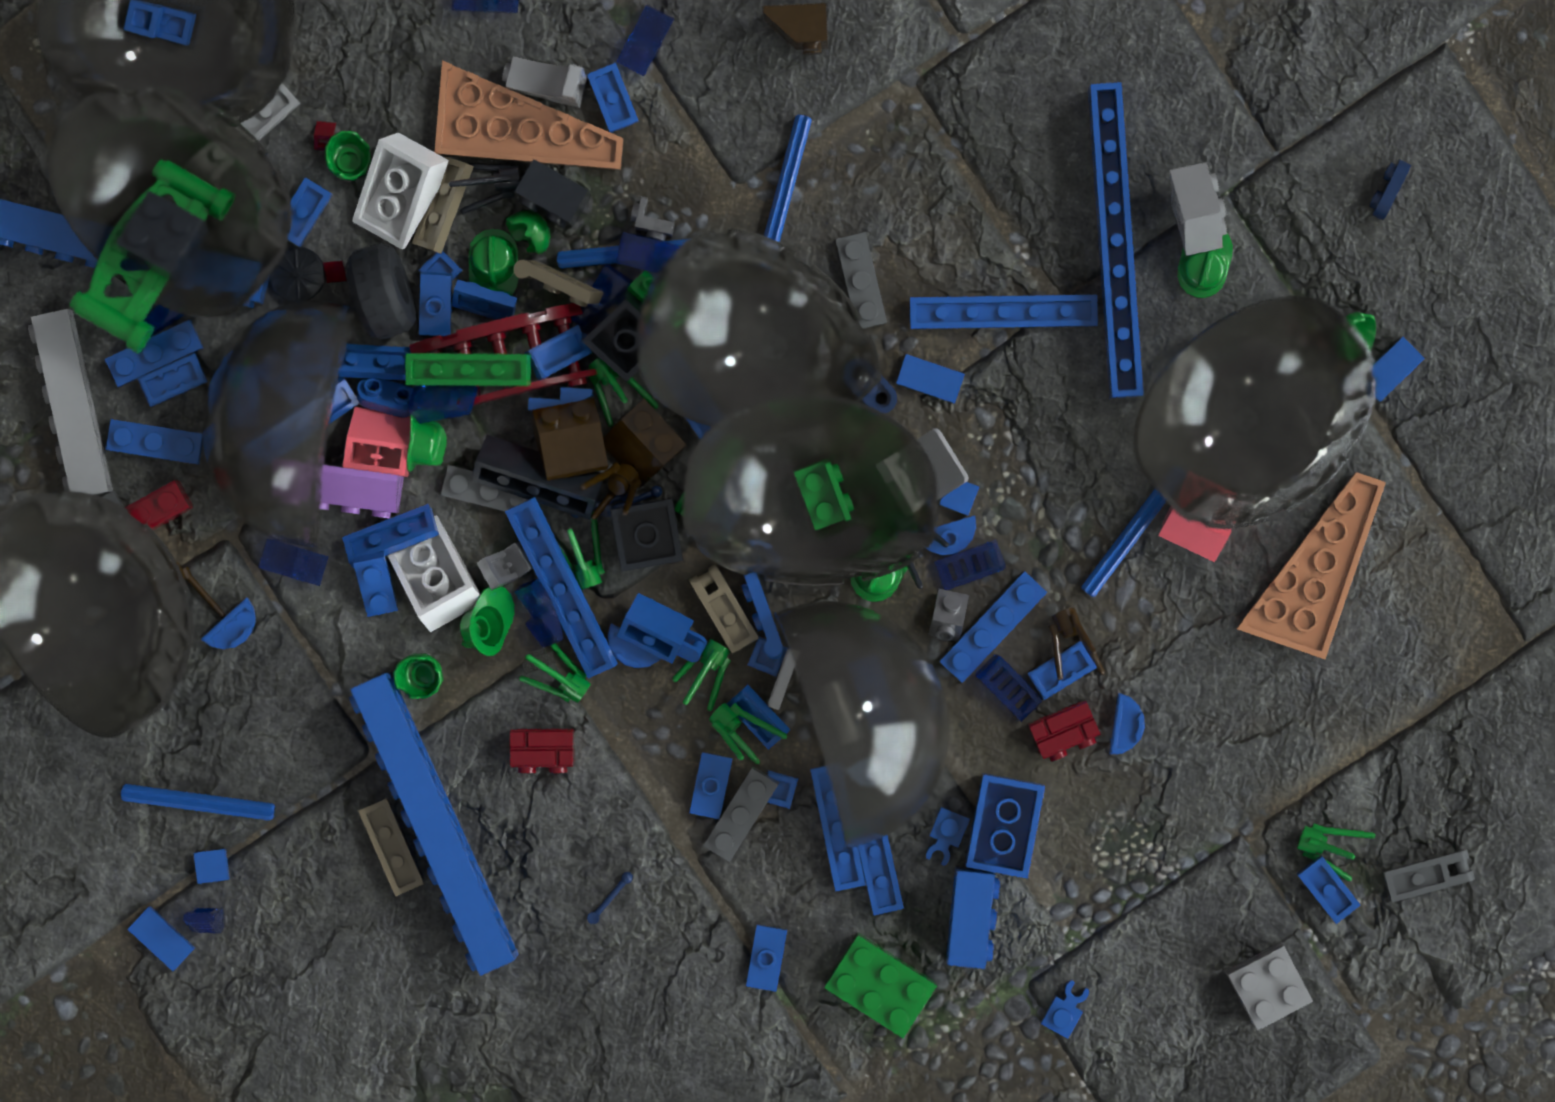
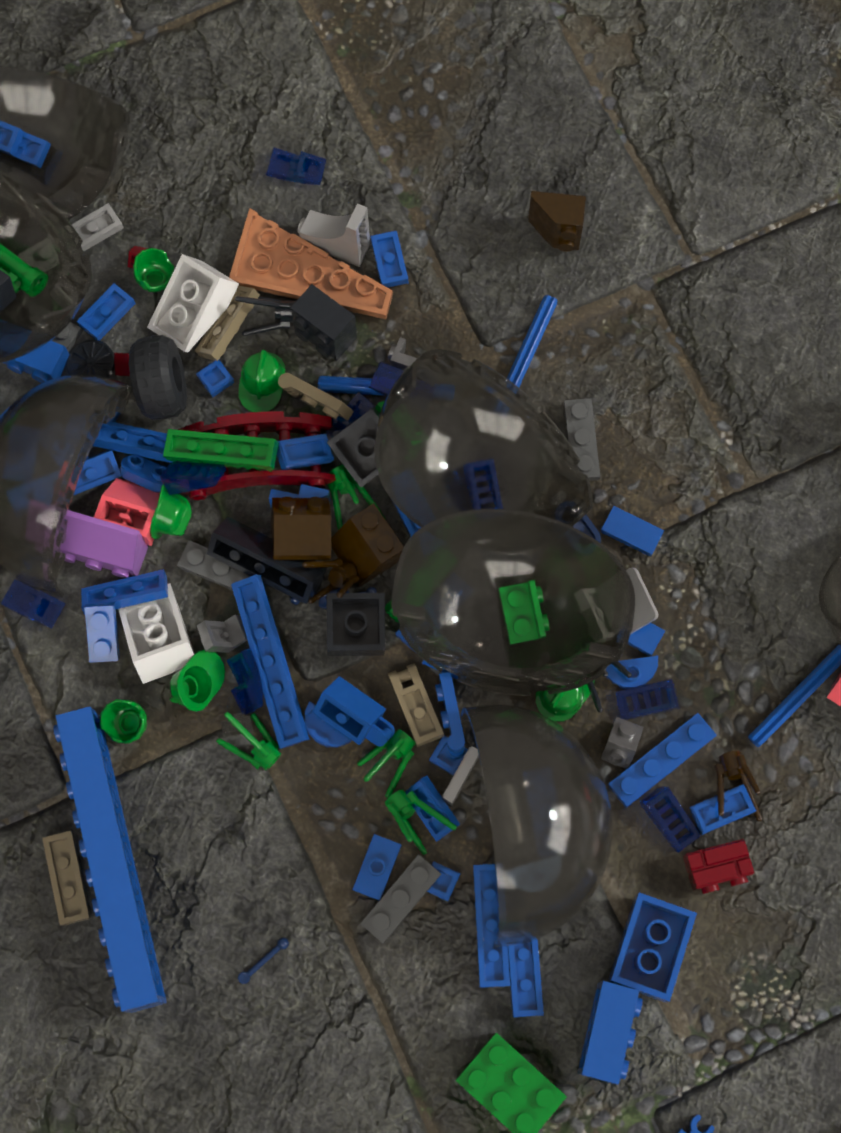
camera: 15 degrees right, 15 degrees down
(435, 303) = (205, 399): blue plate -> none
(483, 301) = (238, 401): blue plate -> none
(530, 227) = (297, 351): green hair -> none
(542, 749) = (225, 806): dark red brick -> none
(587, 573) = (295, 652): green plant -> none
(645, 40) = (425, 220): clear blue slope -> none
(749, 334) = (471, 480): none -> clear blue slope
(766, 958) = (403, 1044): blue plate -> none
(948, 830) = (596, 946): blue plate -> none
(1003, 311) = (705, 482): blue plate -> none
(1115, 240) = (813, 437): blue brick -> none
(1127, 725) = (779, 870): blue plate -> none

